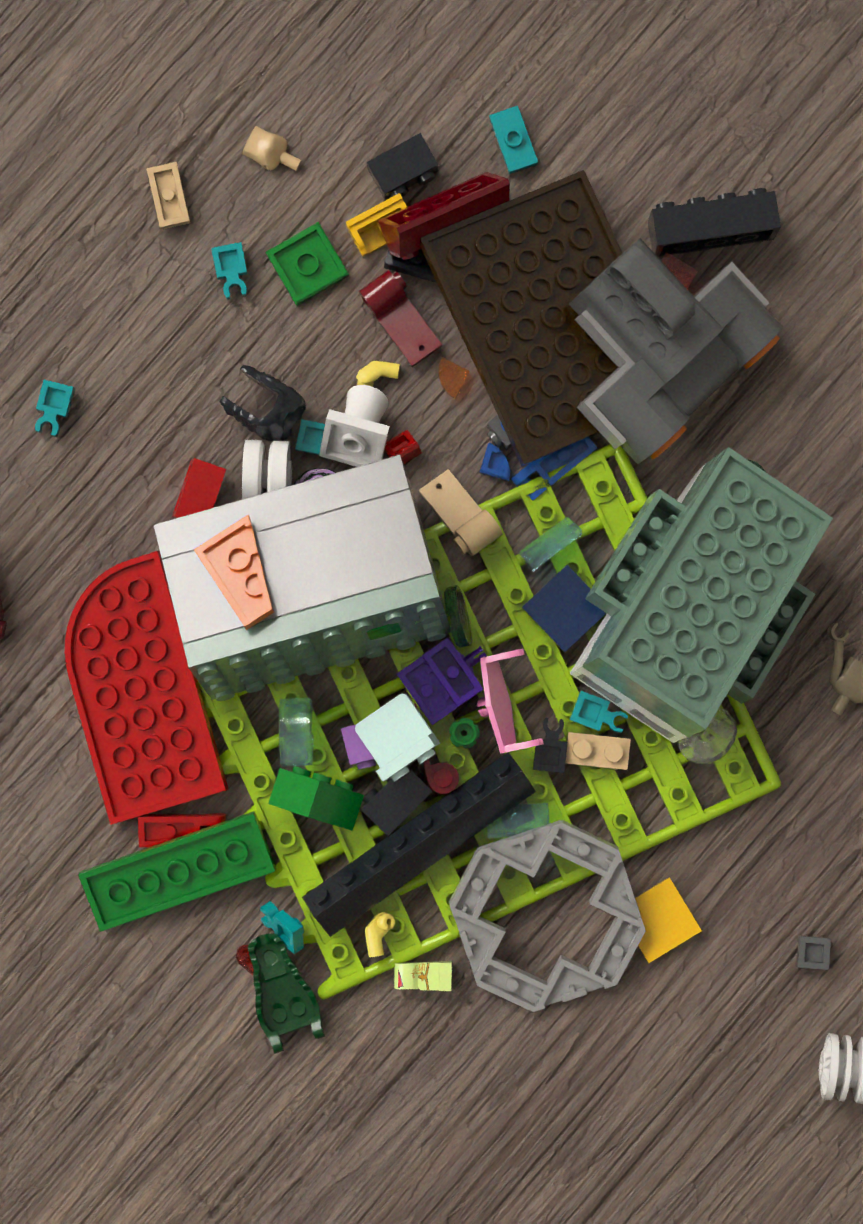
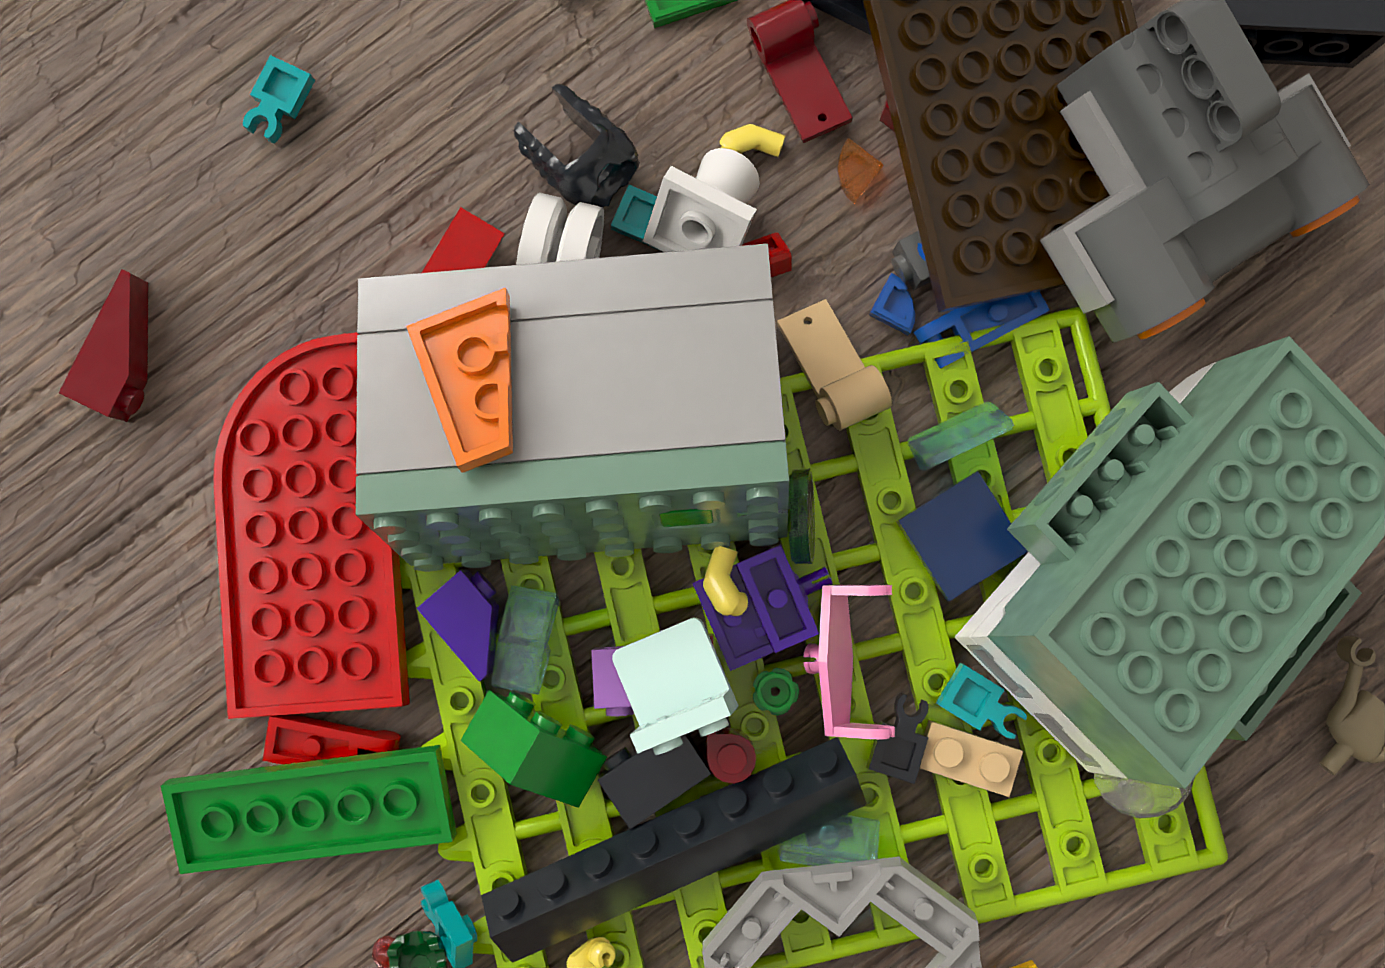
camera: 10 degrees right, 0 degrees up
(255, 726) = (466, 620): none -> dark purple slope
(414, 671) = (720, 586): none -> light yellow arm

